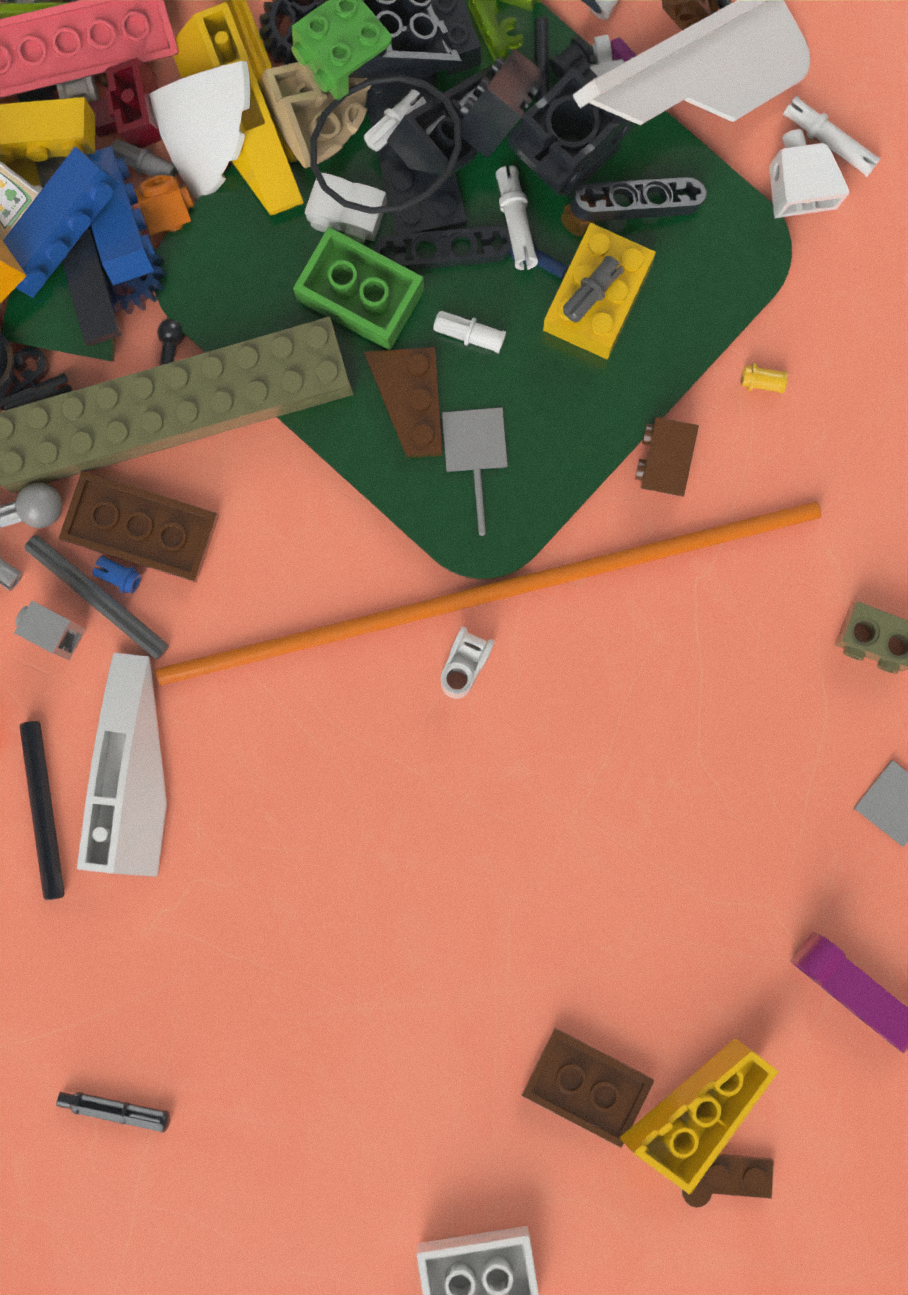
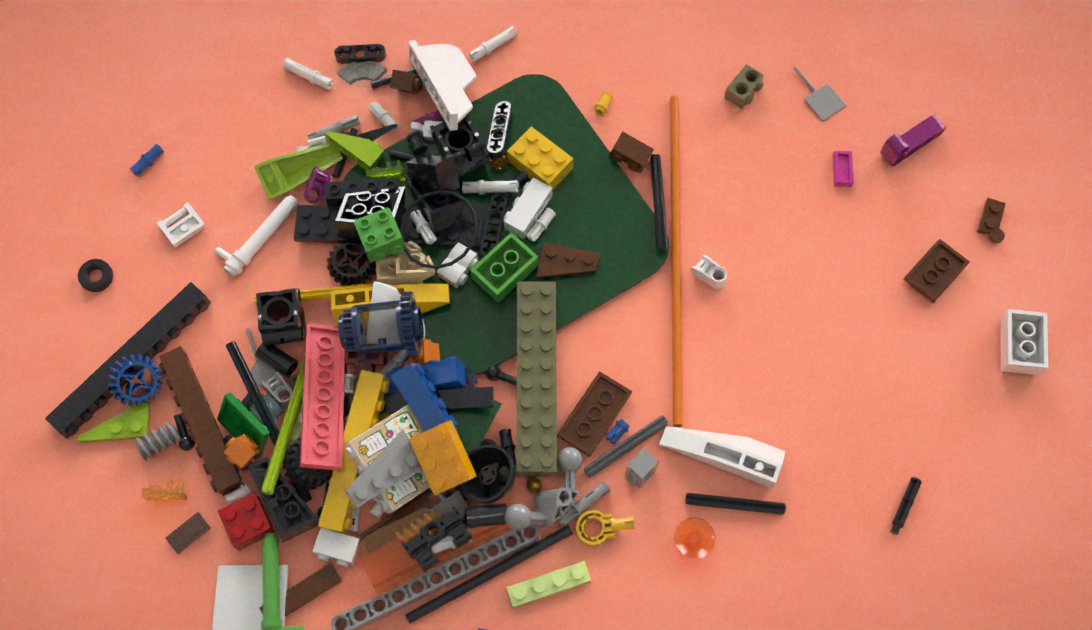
camera: 80 degrees left, 15 degrees down
(174, 142) = (409, 324): none -> dark blue piece
(475, 443) = (599, 238): light grey piece -> none
(494, 297) = (527, 208): none -> white brick
(580, 534) = (659, 204): none -> black axle
(592, 289) = (543, 154): dark grey axle -> none
(701, 1115) = (960, 219): yellow wedge -> none
(758, 867) = (843, 168): none -> dark pink tile
(805, 178) = (510, 59): white torso -> none

